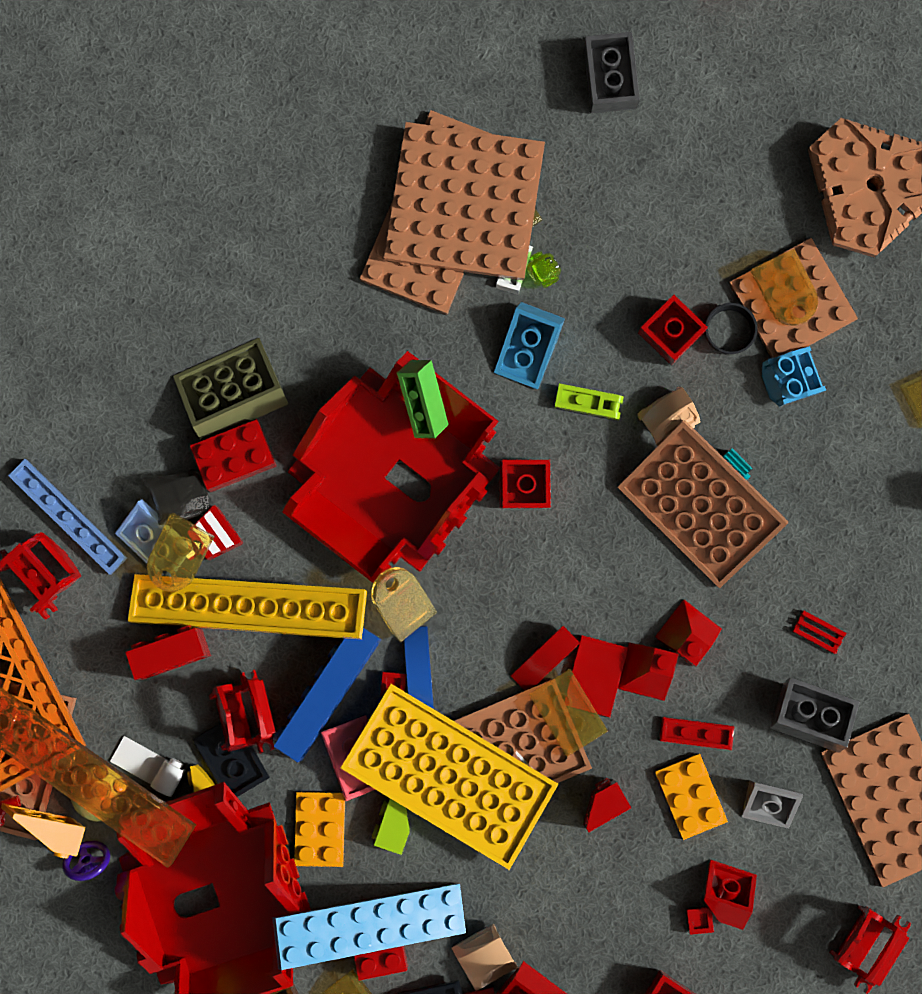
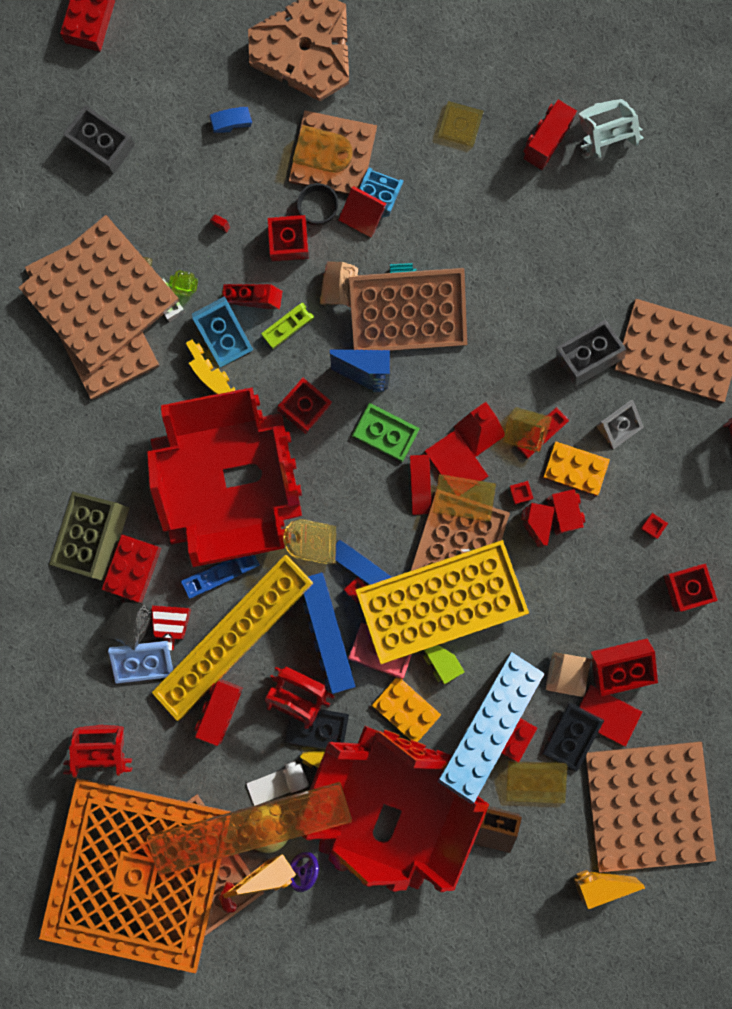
camera: 55 degrees left, 0 degrees up
(67, 516) = (79, 704): medium blue plate -> none
(179, 552) = (161, 652): clear yellow tile -> none
(295, 541) = (218, 575): none -> blue slope
(422, 398) = (198, 420): bright green brick -> none
(476, 378) = (214, 380): none -> yellow slope
(567, 582) = (385, 432): none -> bright green tile
(589, 344) = (253, 295): none -> red slope
(609, 511) = (365, 367): none -> blue slope
(621, 762) = (521, 492): none -> red plate
(631, 253) = (220, 222): none -> red tile
(638, 823) = (566, 511): none -> red brick
(687, 716) = (527, 429): none -> clear yellow slope
(689, 633) = (478, 386): red slope -> none
(730, 894) = (654, 494): red slope -> none
(738, 174) = (230, 118): none -> blue slope
(760, 377) = (362, 211): none -> red tile
(837, 641) = (558, 303): red tile -> none

